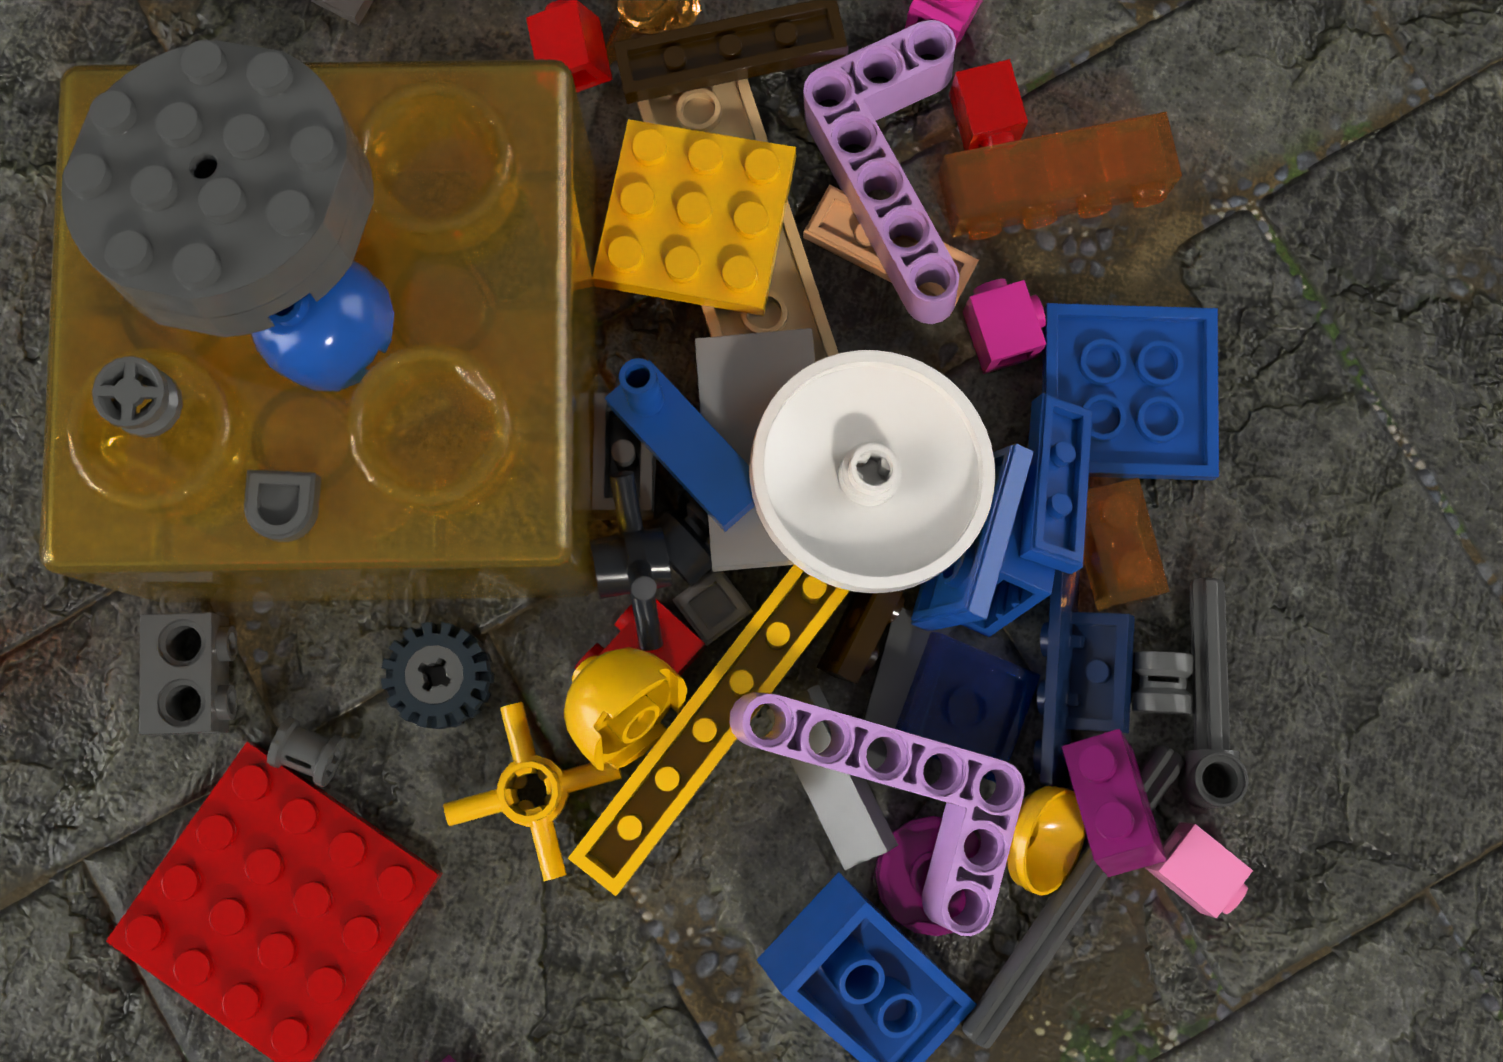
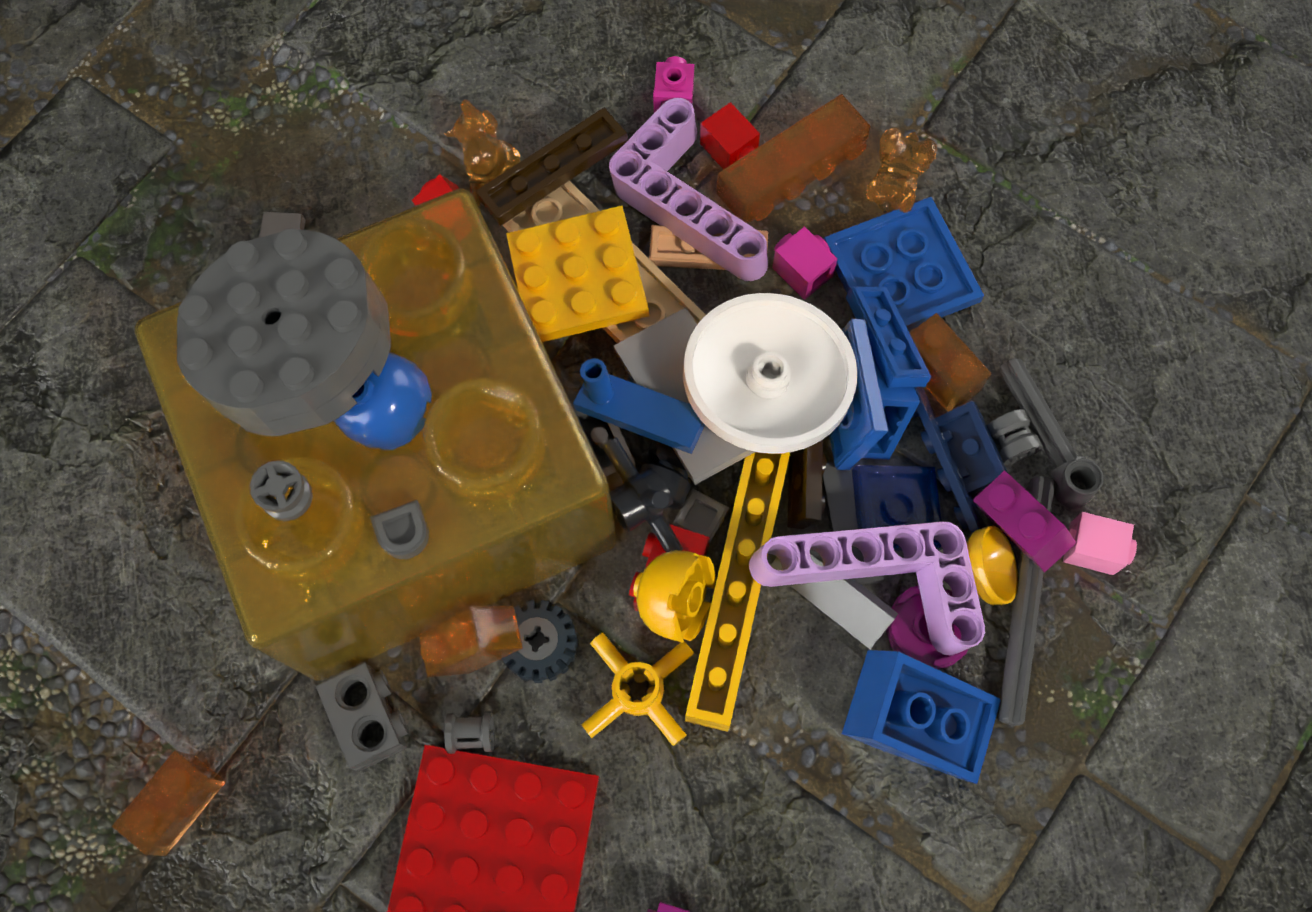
camera: 20 degrees left, 10 degrees down
(349, 643) = (470, 640): none -> clear orange brick
(1200, 246) = (901, 165): none -> clear orange animal

